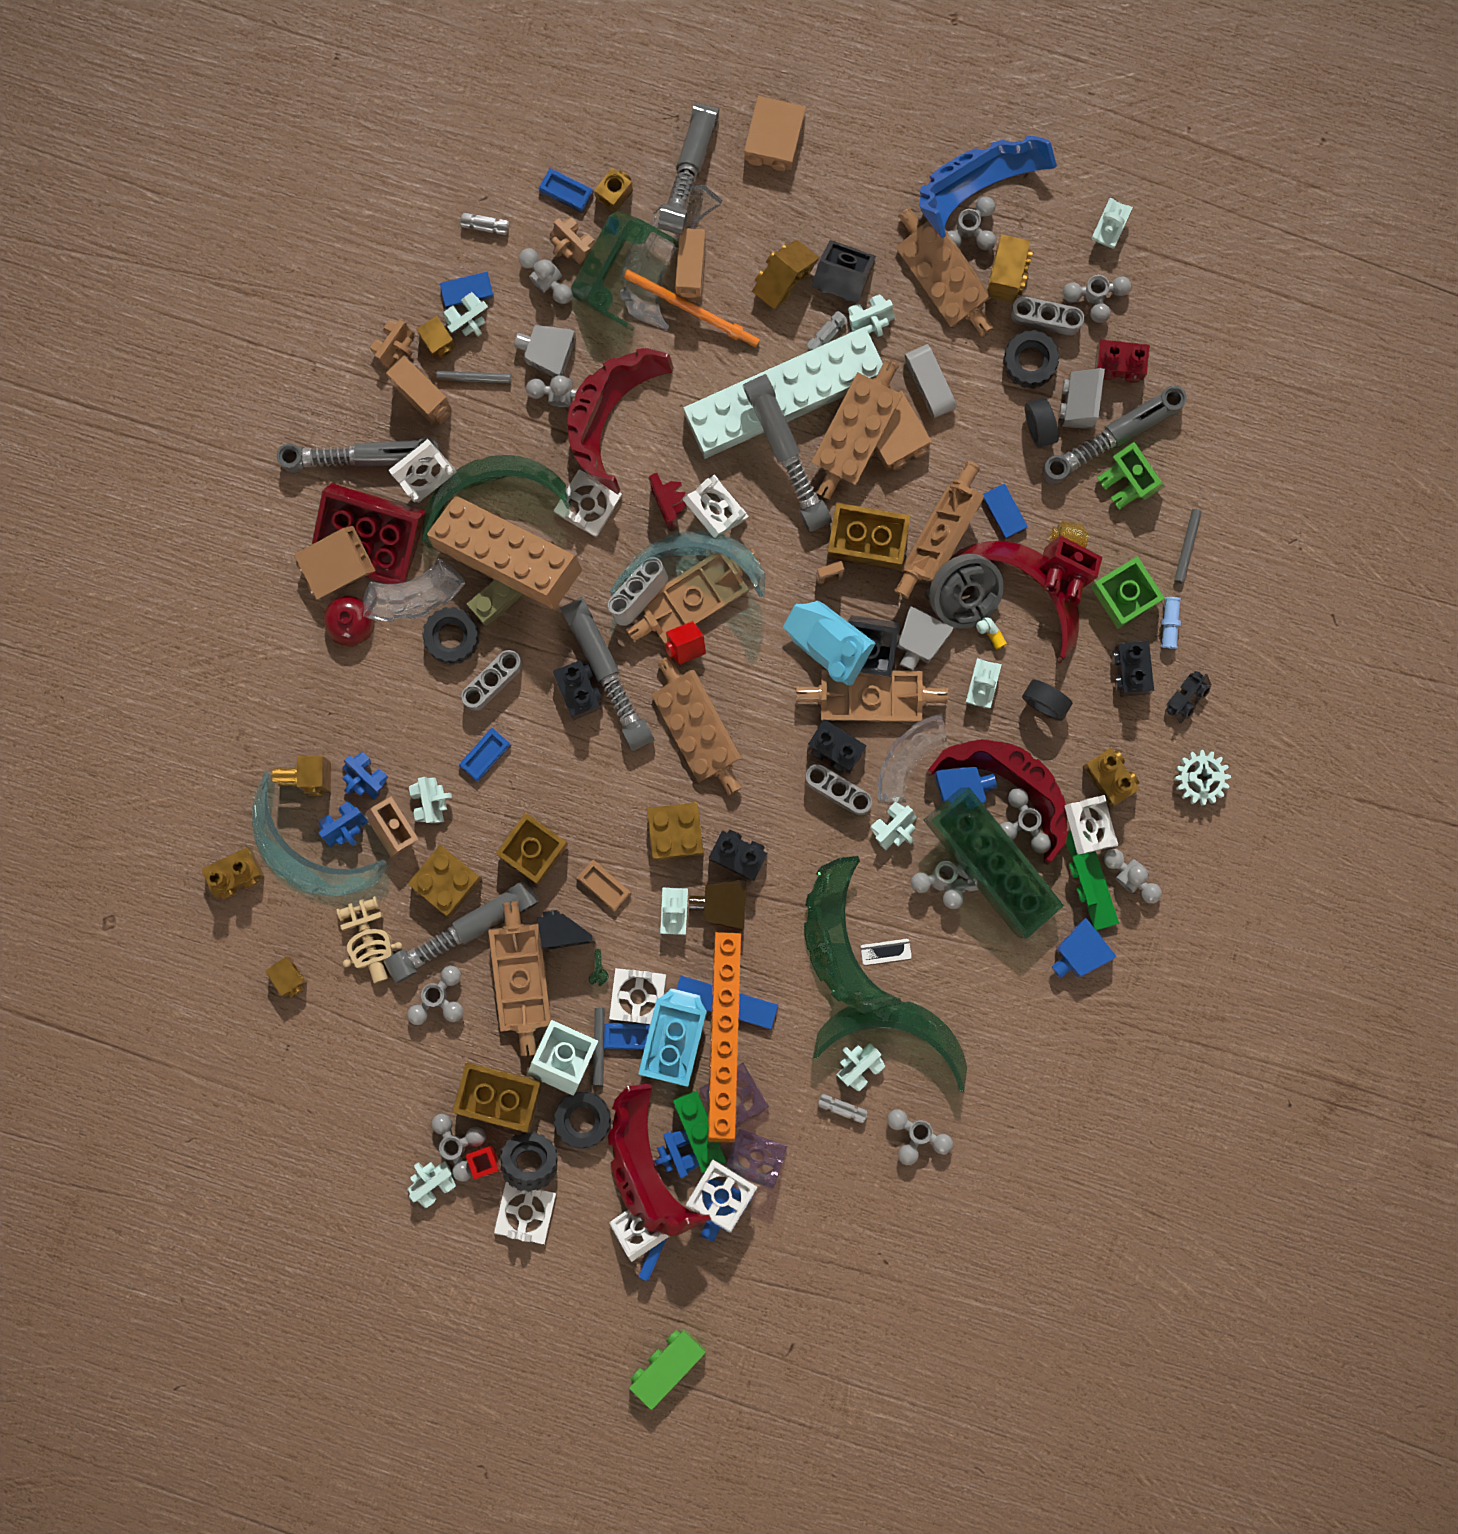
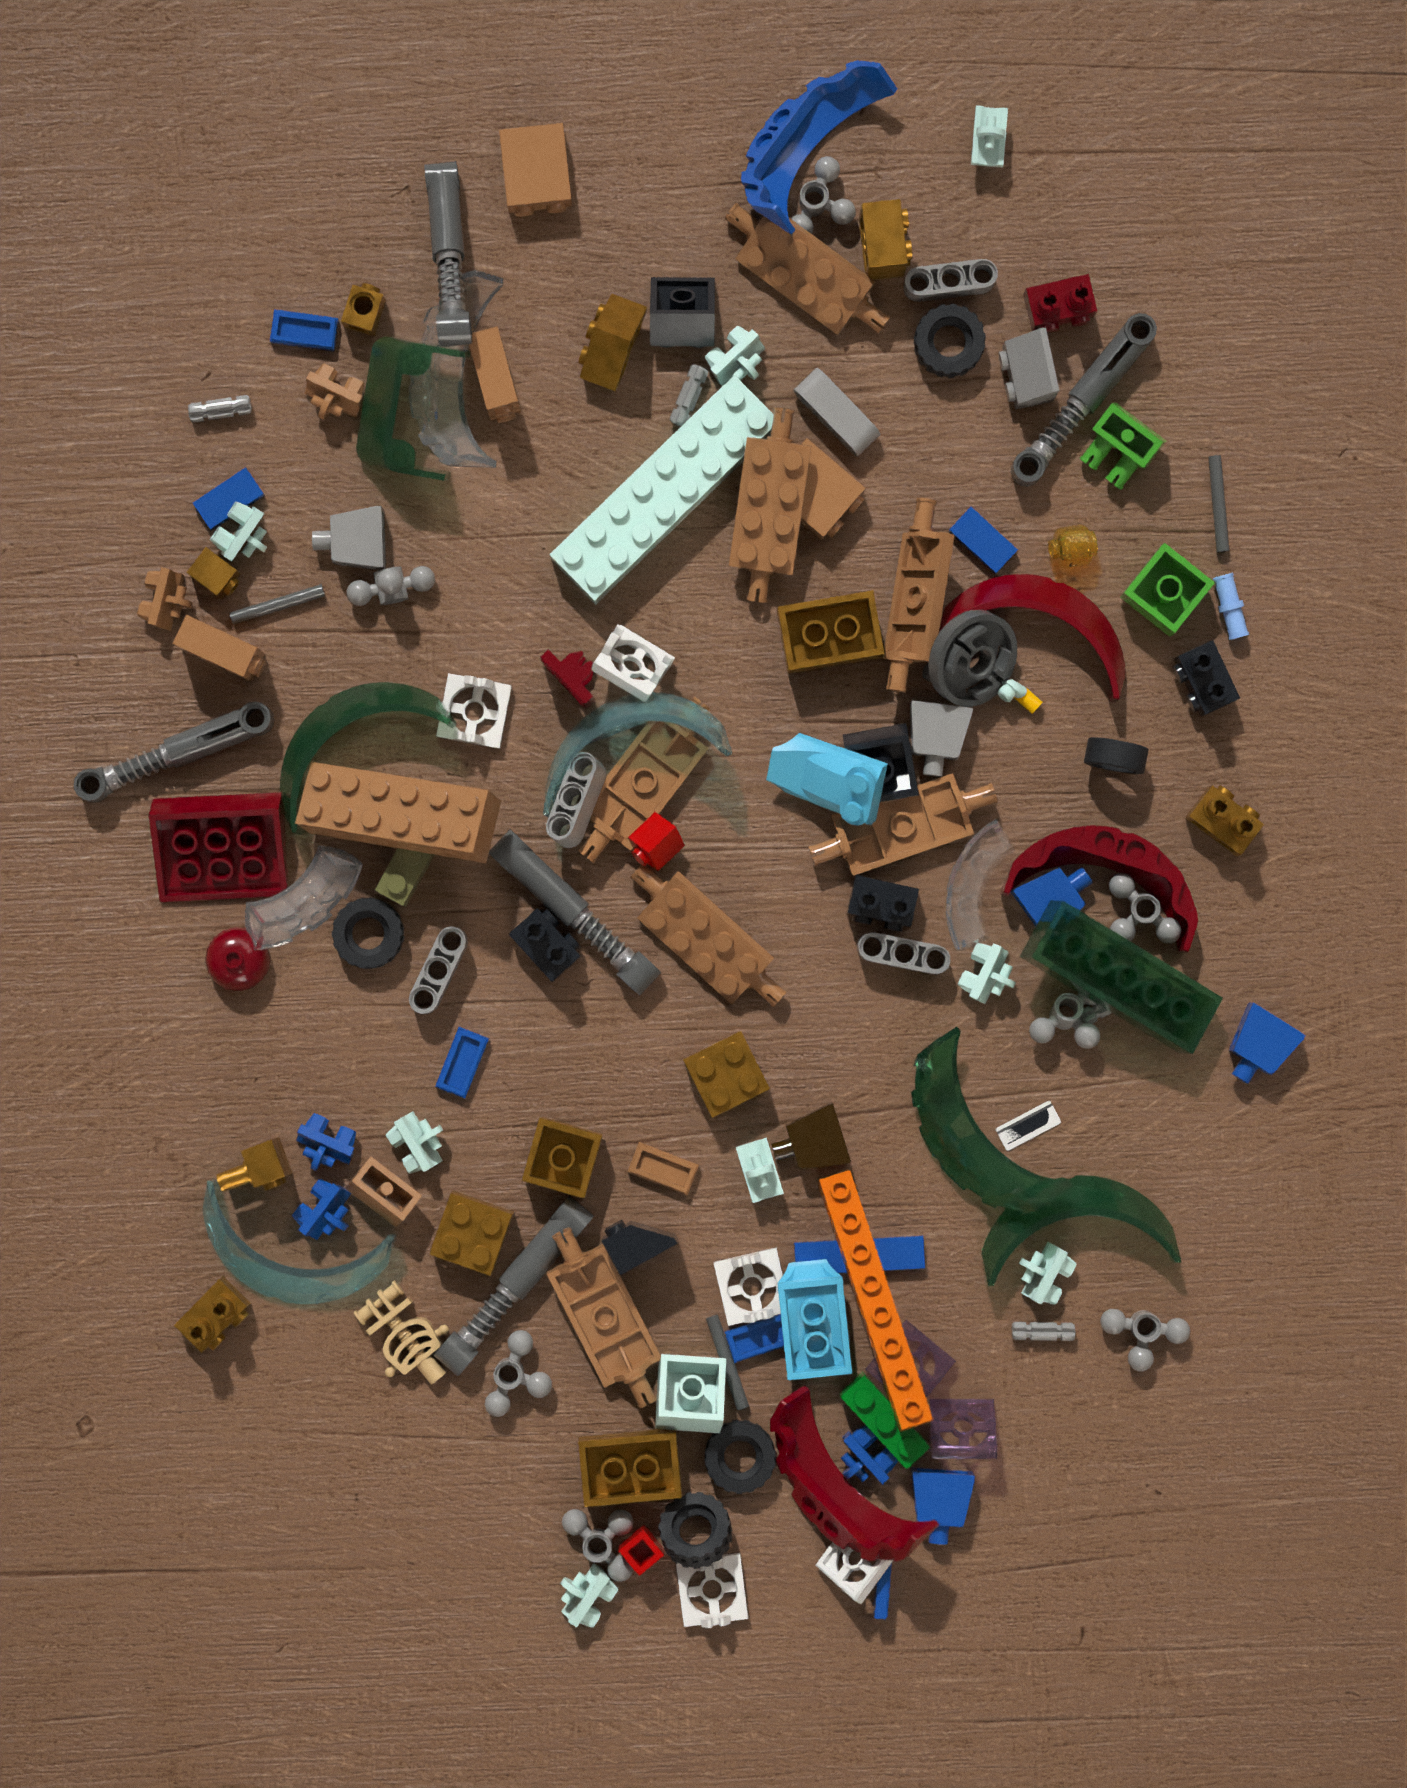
camera: 25 degrees left, 5 degrees up
(286, 977) = (324, 1416): pearl gold brick -> none
(334, 562) = (194, 897): medium nougat brick -> none
(400, 470) = (248, 735): white piece -> none
(545, 275) = (319, 448): light grey piece -> none
(598, 397) = (439, 580): dark red windscreen -> none
(599, 974) = (698, 1276): clear green hand -> none
(666, 1367) = (945, 1710): bright green brick -> none
(734, 331) = (575, 434): orange bar -> none
(738, 855) = (812, 1075): black brick -> none
(747, 1190) = (968, 1474): white piece -> none
(782, 442) = (694, 564): dark grey piece -> none
(830, 574) = (800, 696): medium nougat tile -> none
(983, 683) = (1032, 762): light aqua hips -> none
(1041, 422) = (990, 417): black tyre -> none
(1071, 563) = (1086, 578): dark red brick -> none
(1079, 829) = (1195, 881): white piece -> none
(1093, 886) = (1241, 949): green bracket -> none
(1100, 312) = (1013, 251): light grey piece -> none
(1132, 876) = (1291, 930): light grey piece -> none
(1182, 705) = (1288, 676): black hinge -> none
(1202, 789) = (1327, 769): light aqua gear -> none

